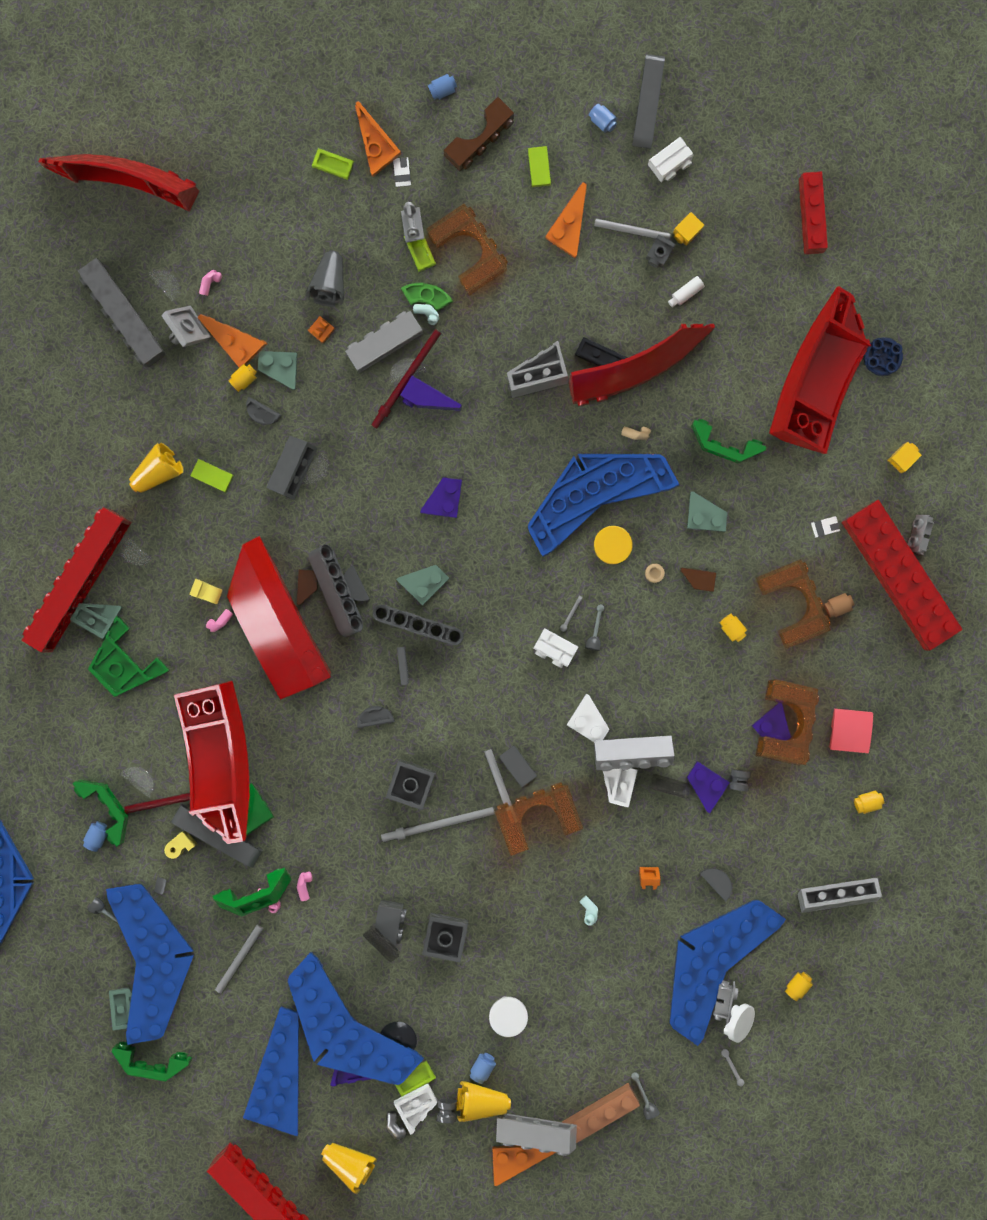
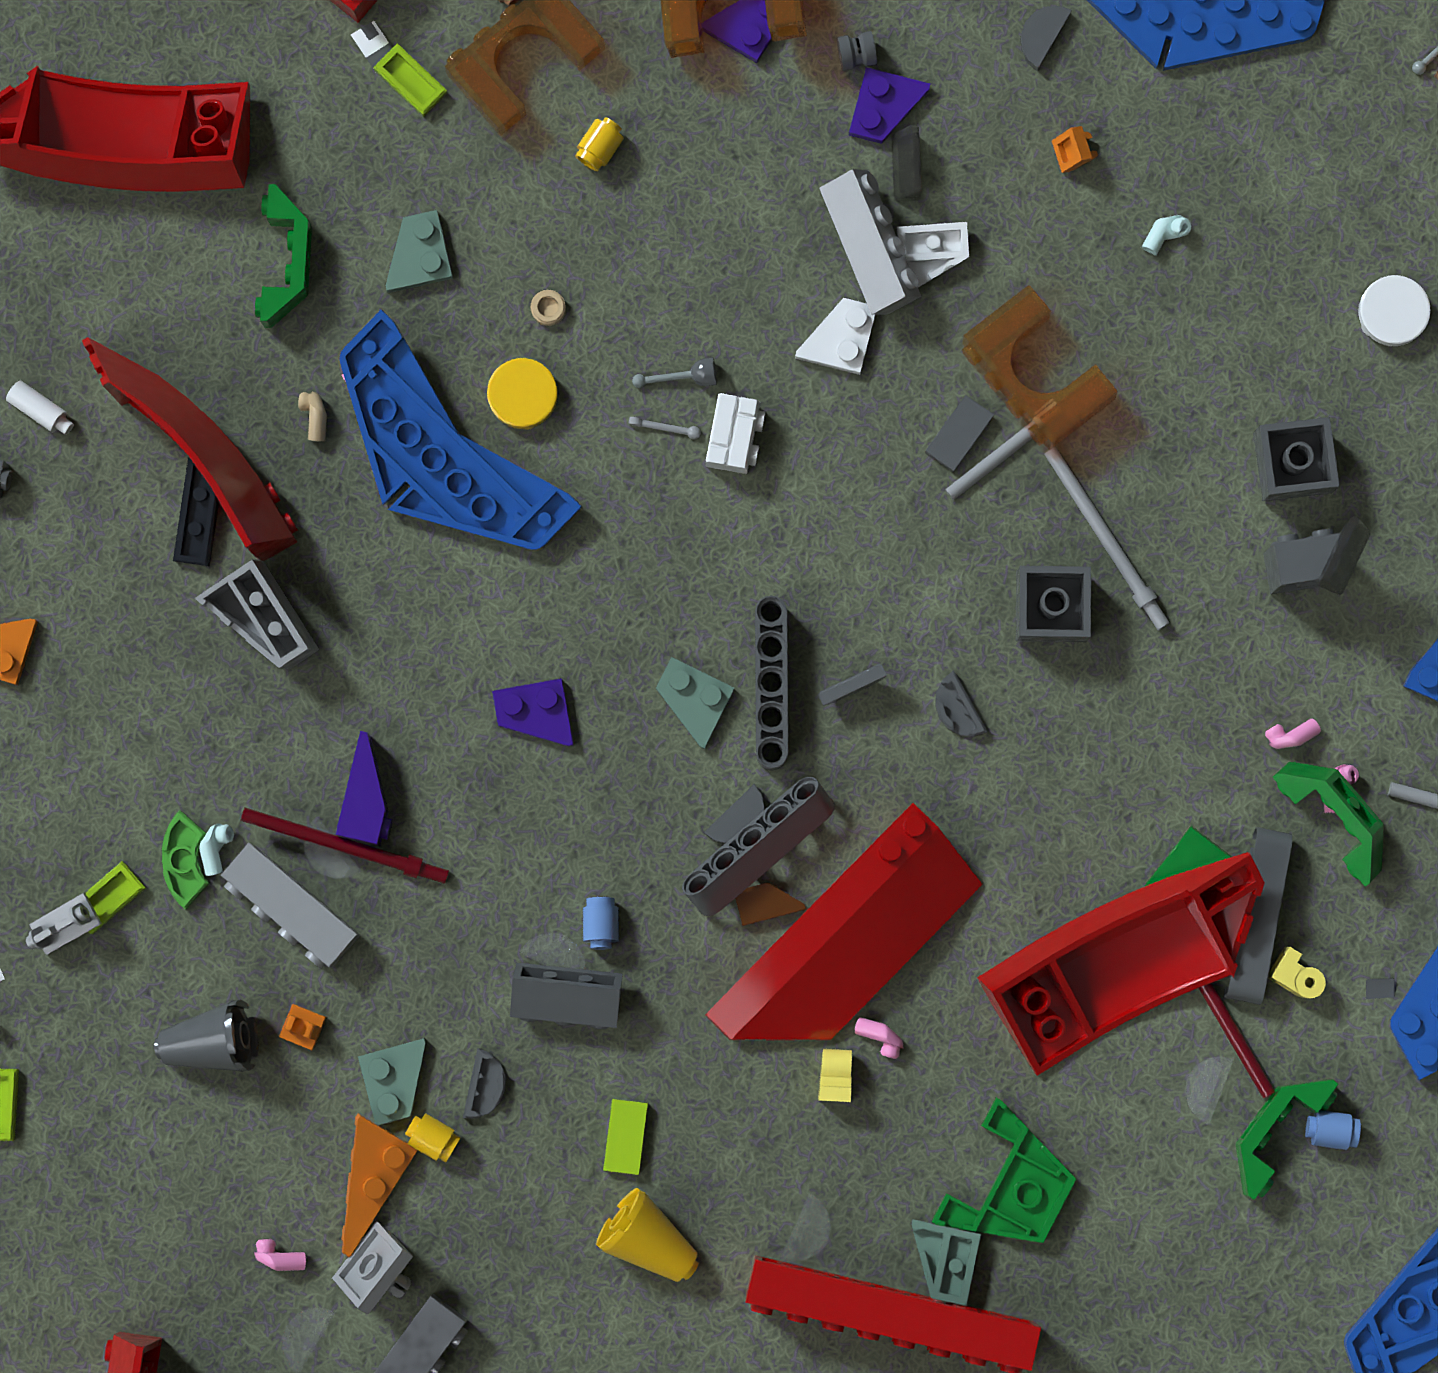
camera: 110 degrees left, 5 degrees down
(323, 497) = (600, 922): none -> medium blue brick
(463, 222) = (34, 833): clear orange arch -> none
(700, 579) = (533, 226): reddish brown tile -> none
(800, 539) = (410, 80): none -> lime tile
(883, 356) = (49, 39): dark blue tile -> none

